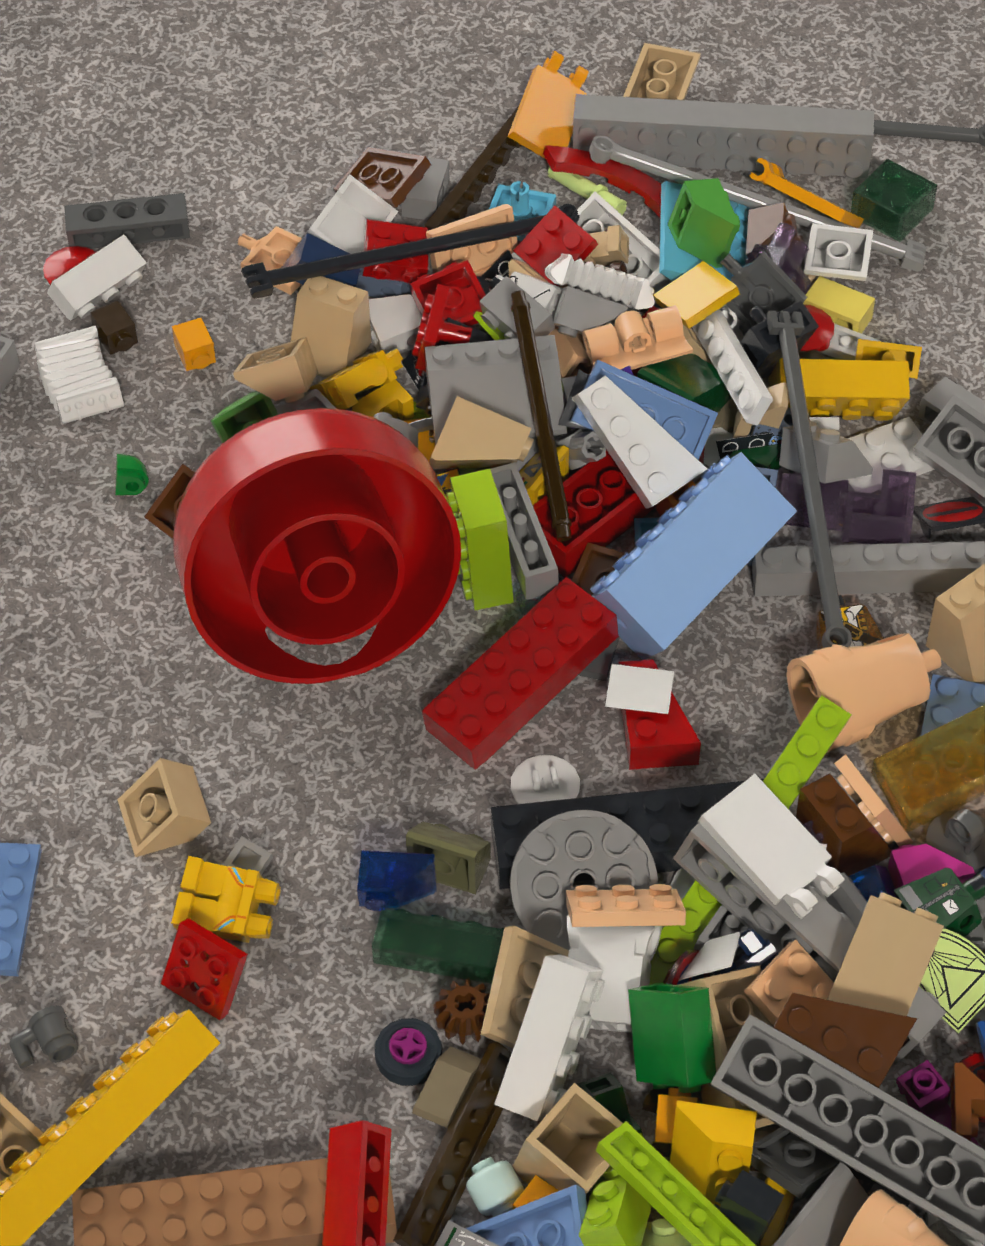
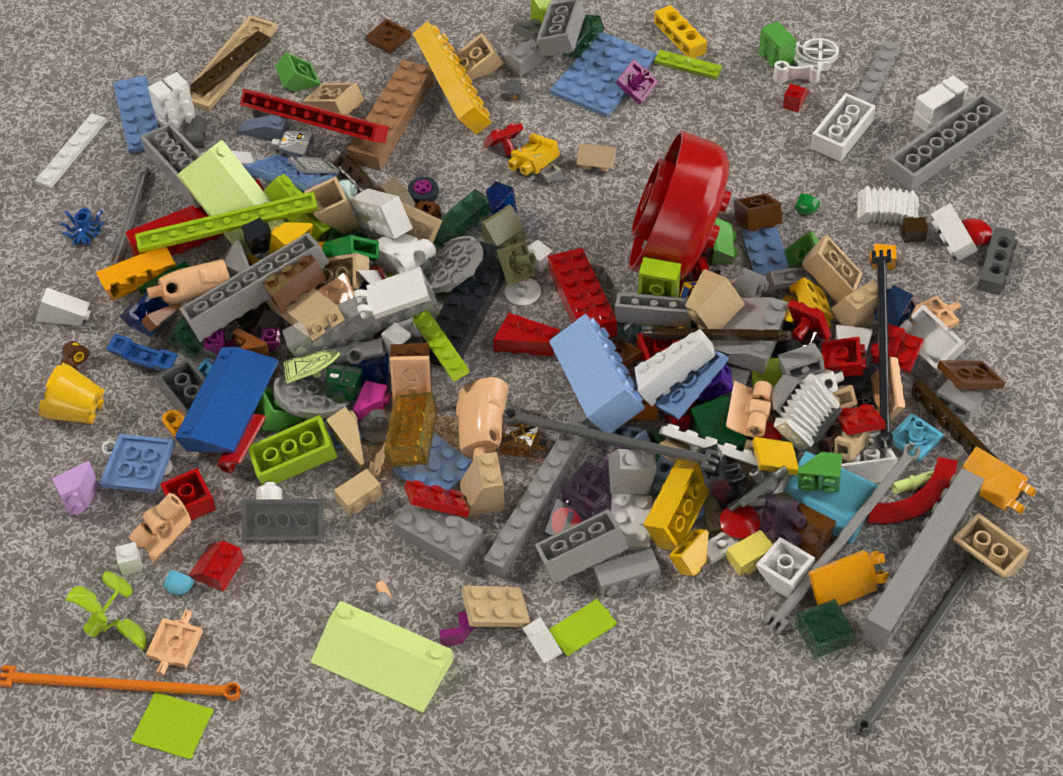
camera: 120 degrees right, 0 degrees up
(461, 784) = (541, 252): none -> white brick
(514, 785) = (520, 262): none -> olive plate
(625, 906) = (422, 253): light nougat plate -> none
(639, 689) = (536, 326): white sticker -> none

